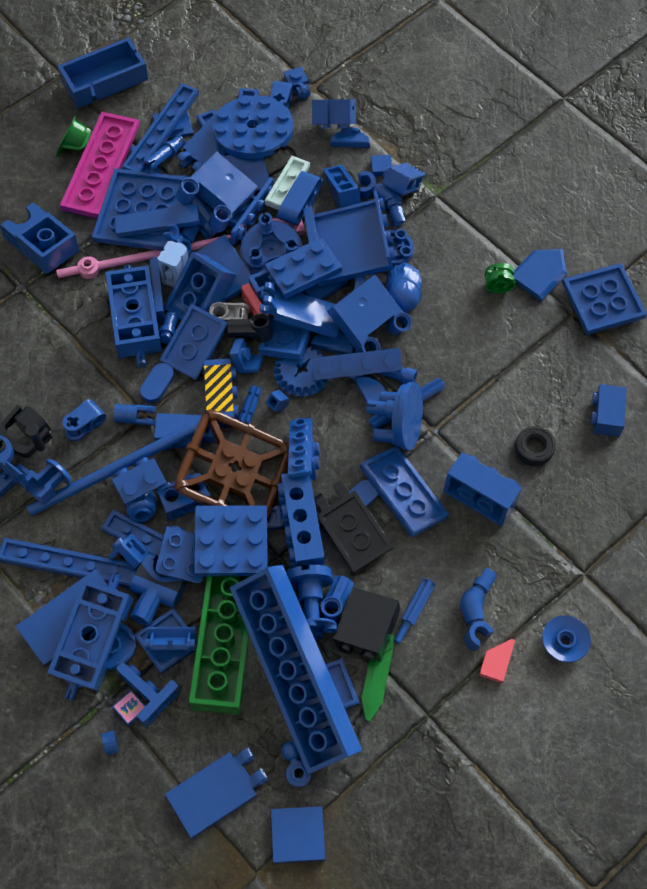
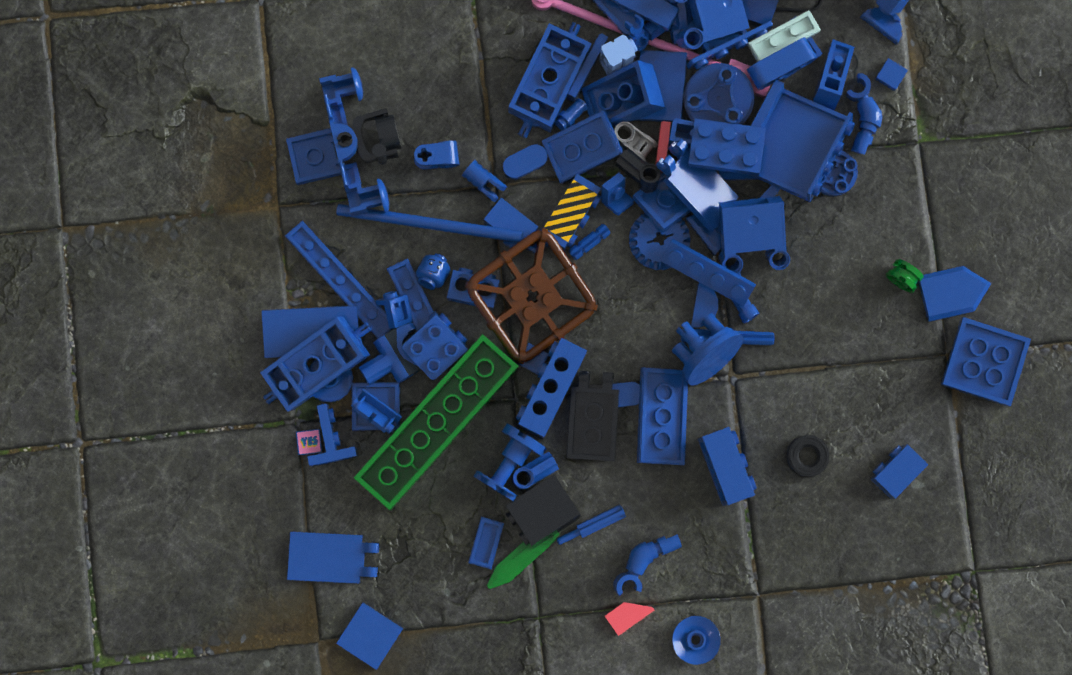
camera: 30 degrees right, 20 degrees up
(110, 743) = (275, 460): blue axle -> none
(139, 480) = (442, 251): blue bracket -> none
(230, 540) = (479, 365): blue plate -> none
(281, 399) = (615, 256): blue piece -> none
(291, 754) = (409, 570): blue plate -> none
(295, 668) = (454, 512): blue brick -> none
(302, 449) = (599, 323): blue bracket -> none
(403, 178) = (895, 108): blue brick -> none
(404, 286) = (810, 222): blue hair -> none

